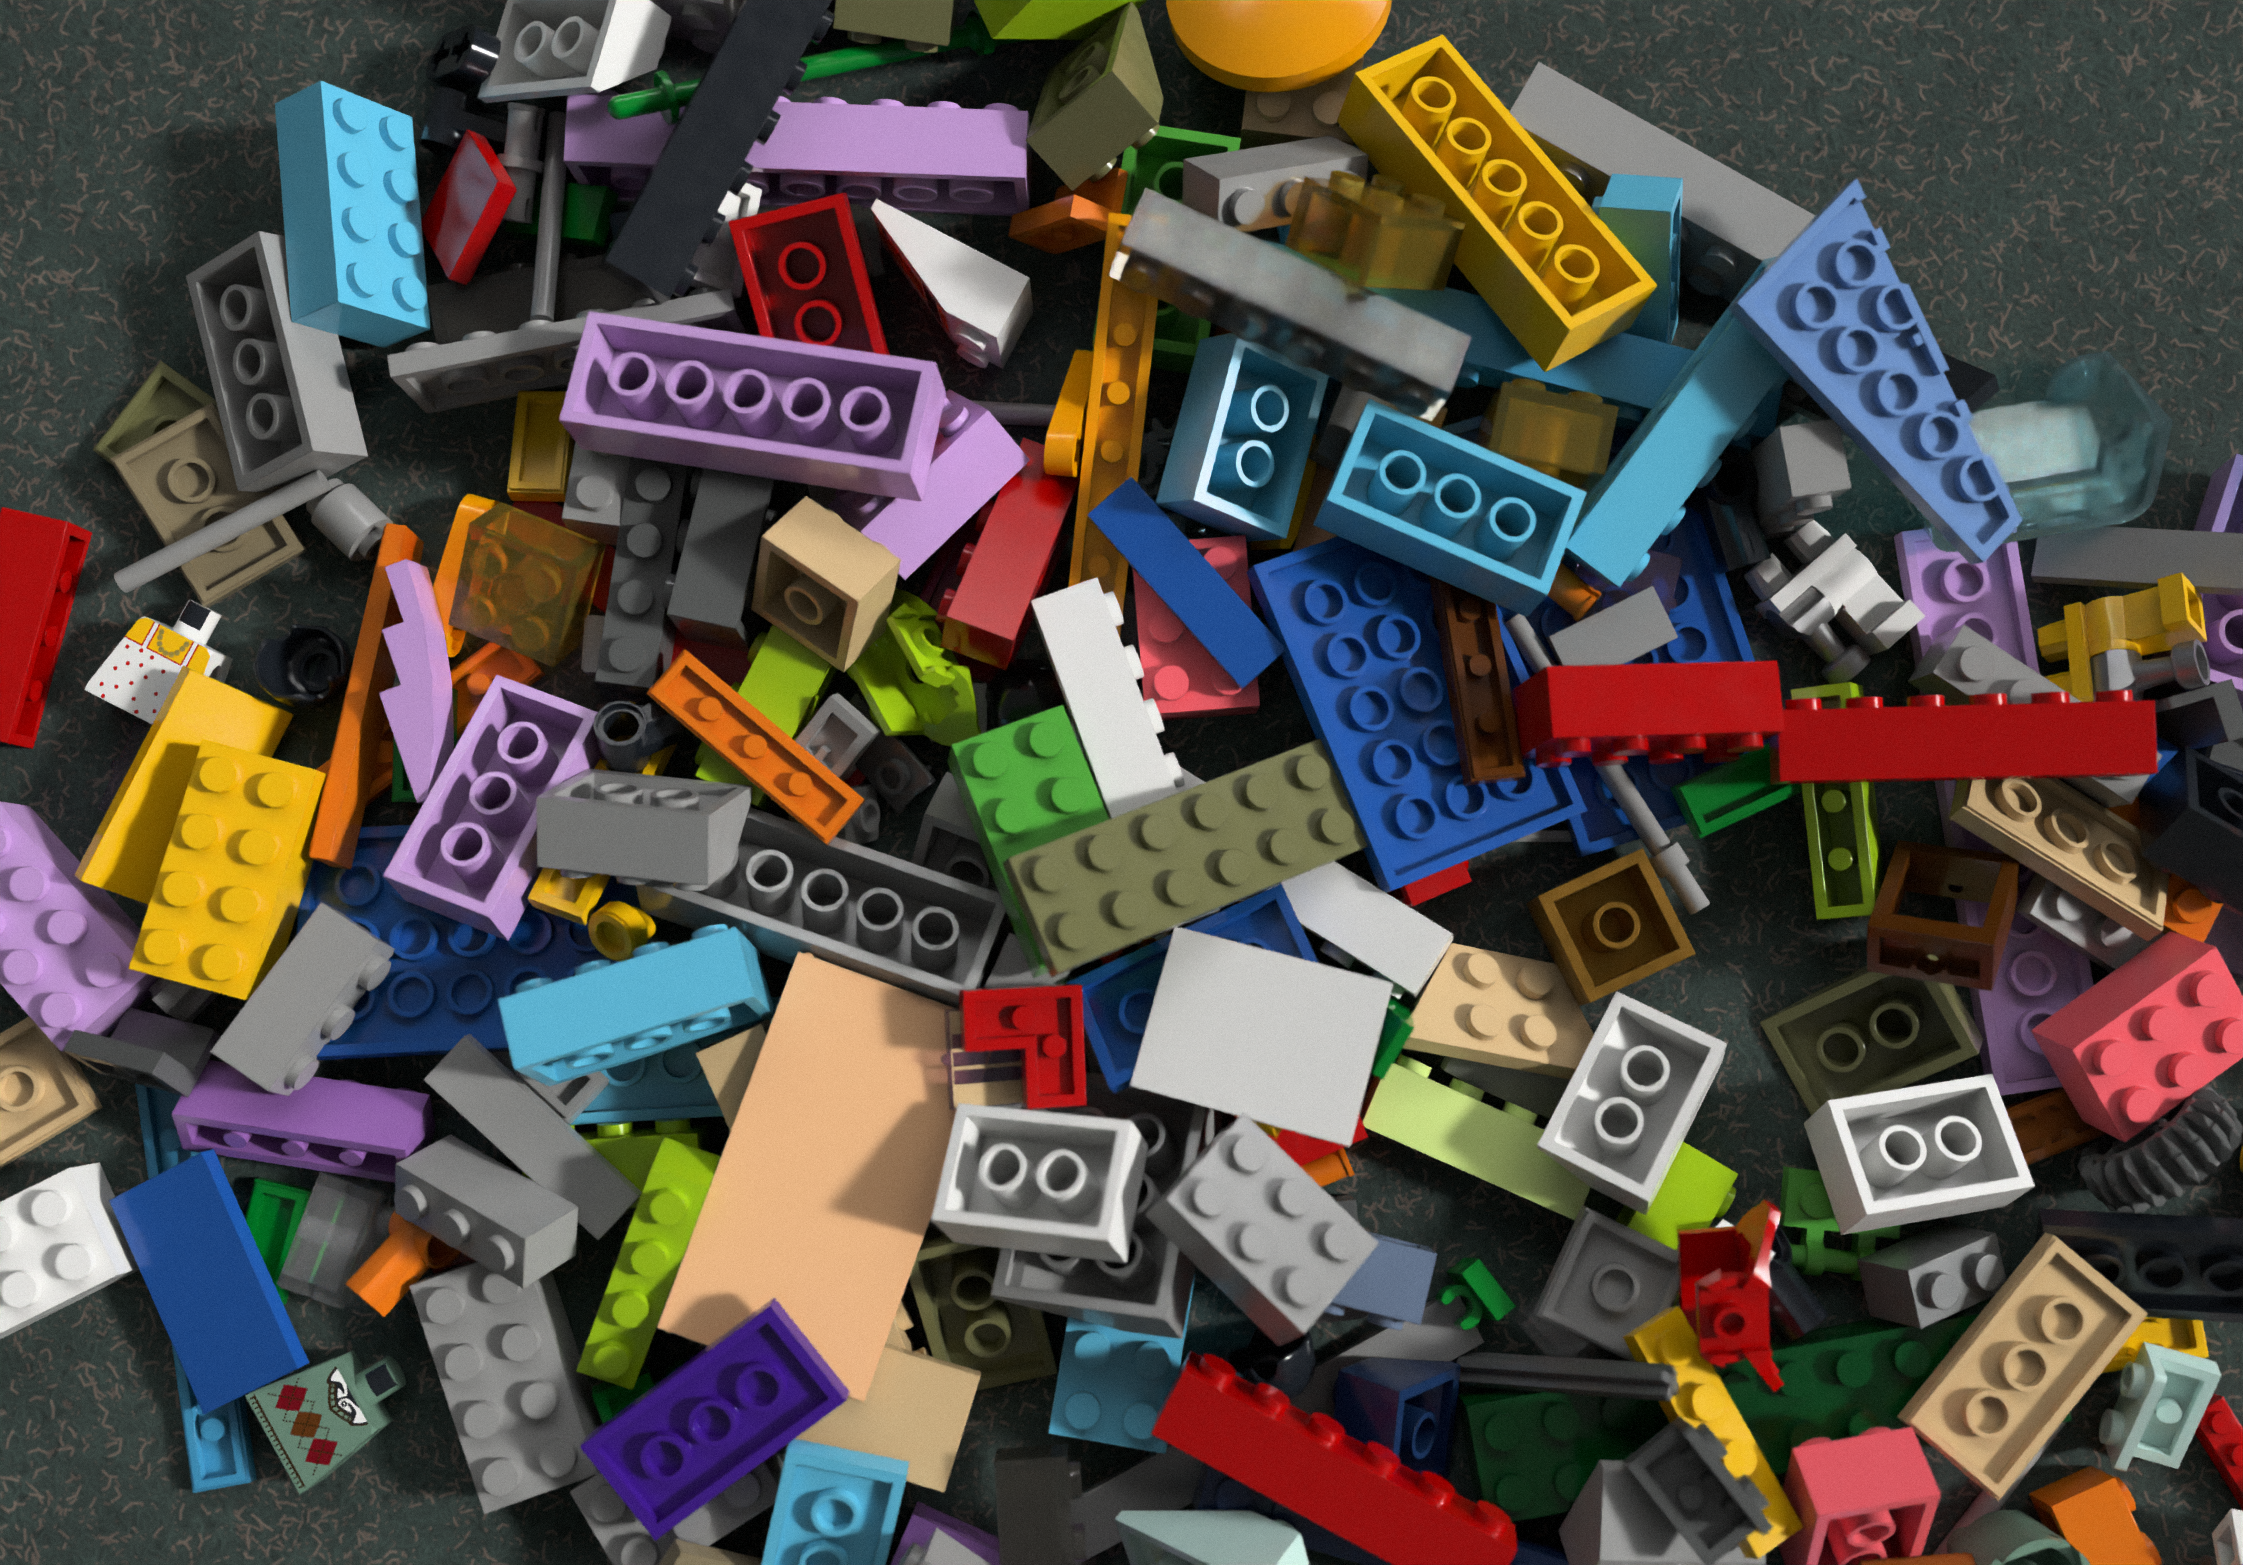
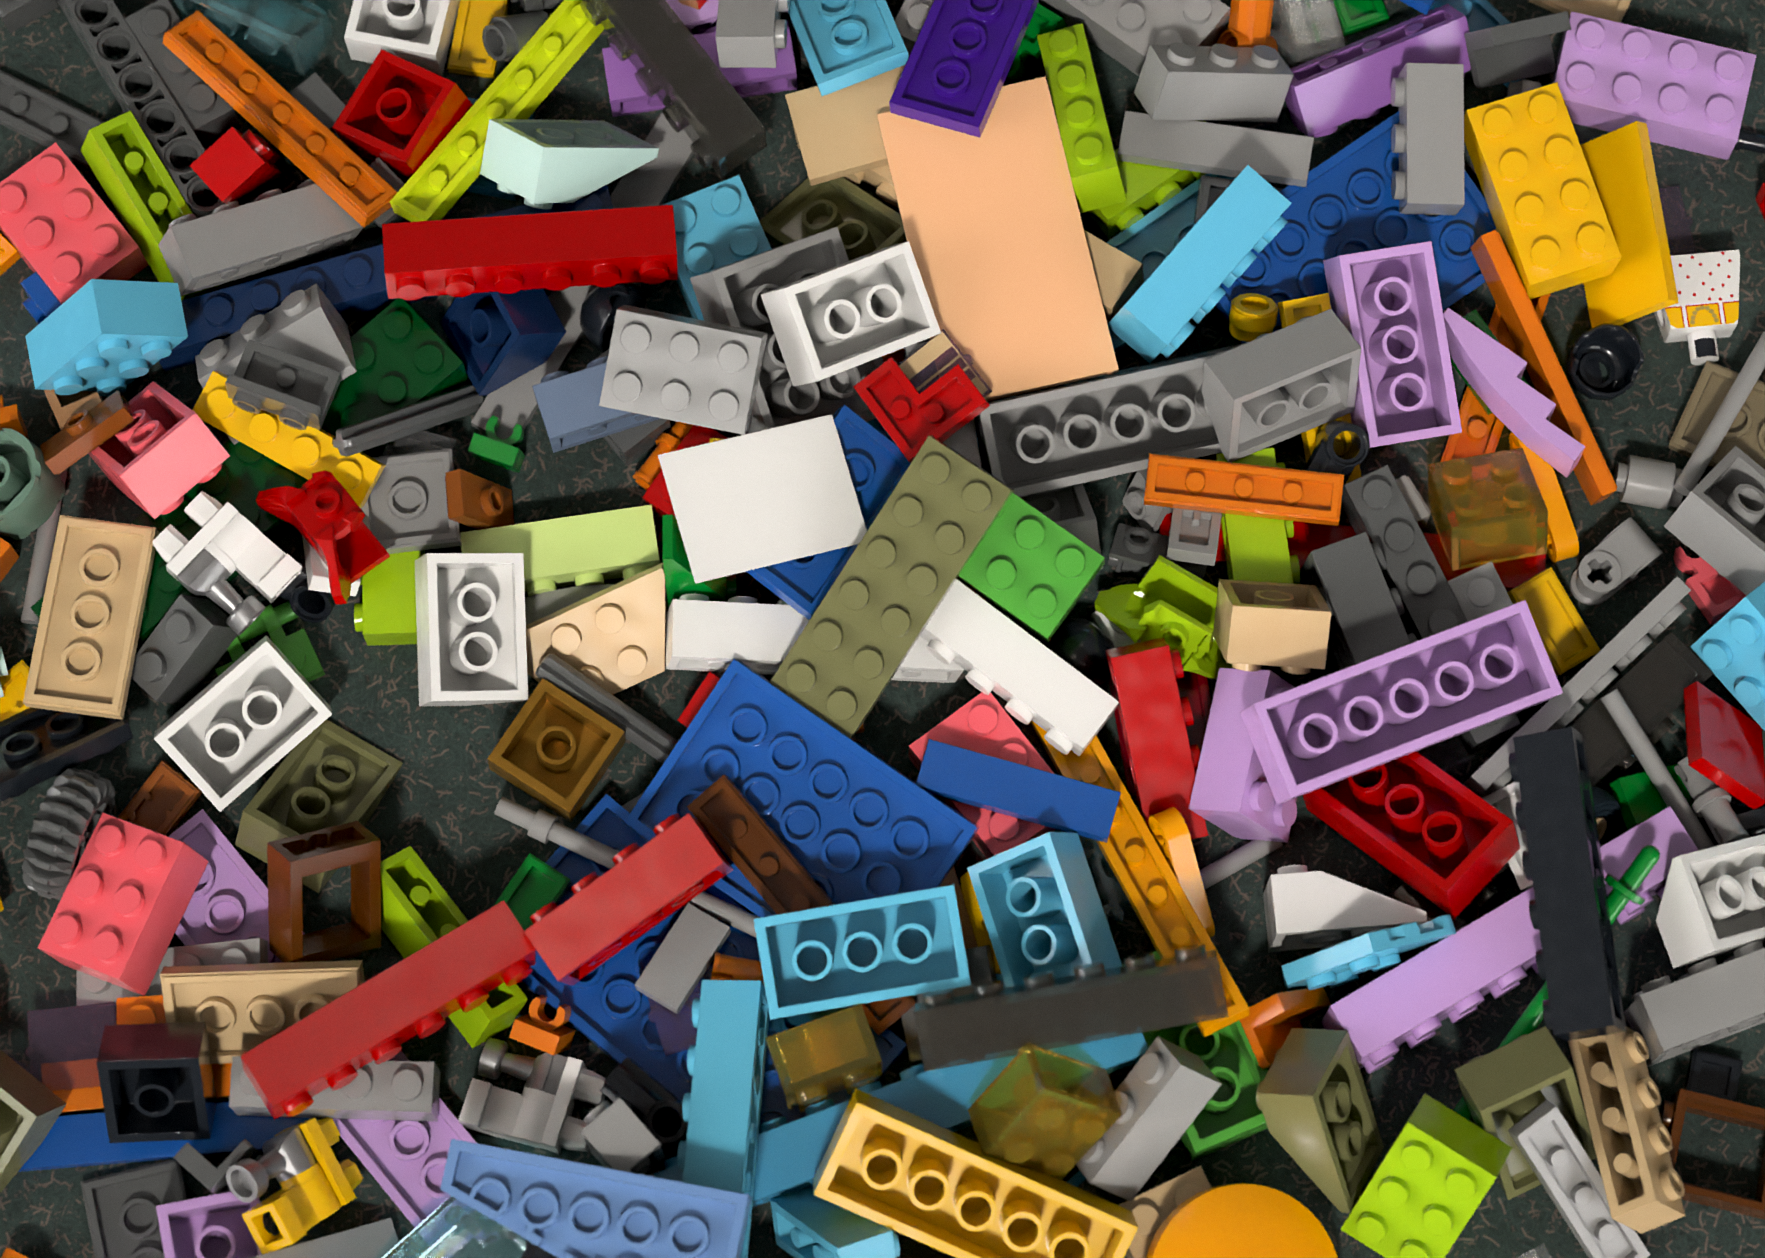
camera: 150 degrees right, 10 degrees down
(370, 383) = (1709, 589): none -> coral plate
(436, 463) = (1617, 559): none -> light grey piece
(964, 208) = (1369, 951): none -> medium azure wing
(1533, 937) = (636, 727): none -> dark grey axle
(1537, 1239) = (477, 501): none -> dark orange plate
(1794, 652) = (542, 1032): none -> orange tile
(1845, 1352) = (220, 548): none -> white hips

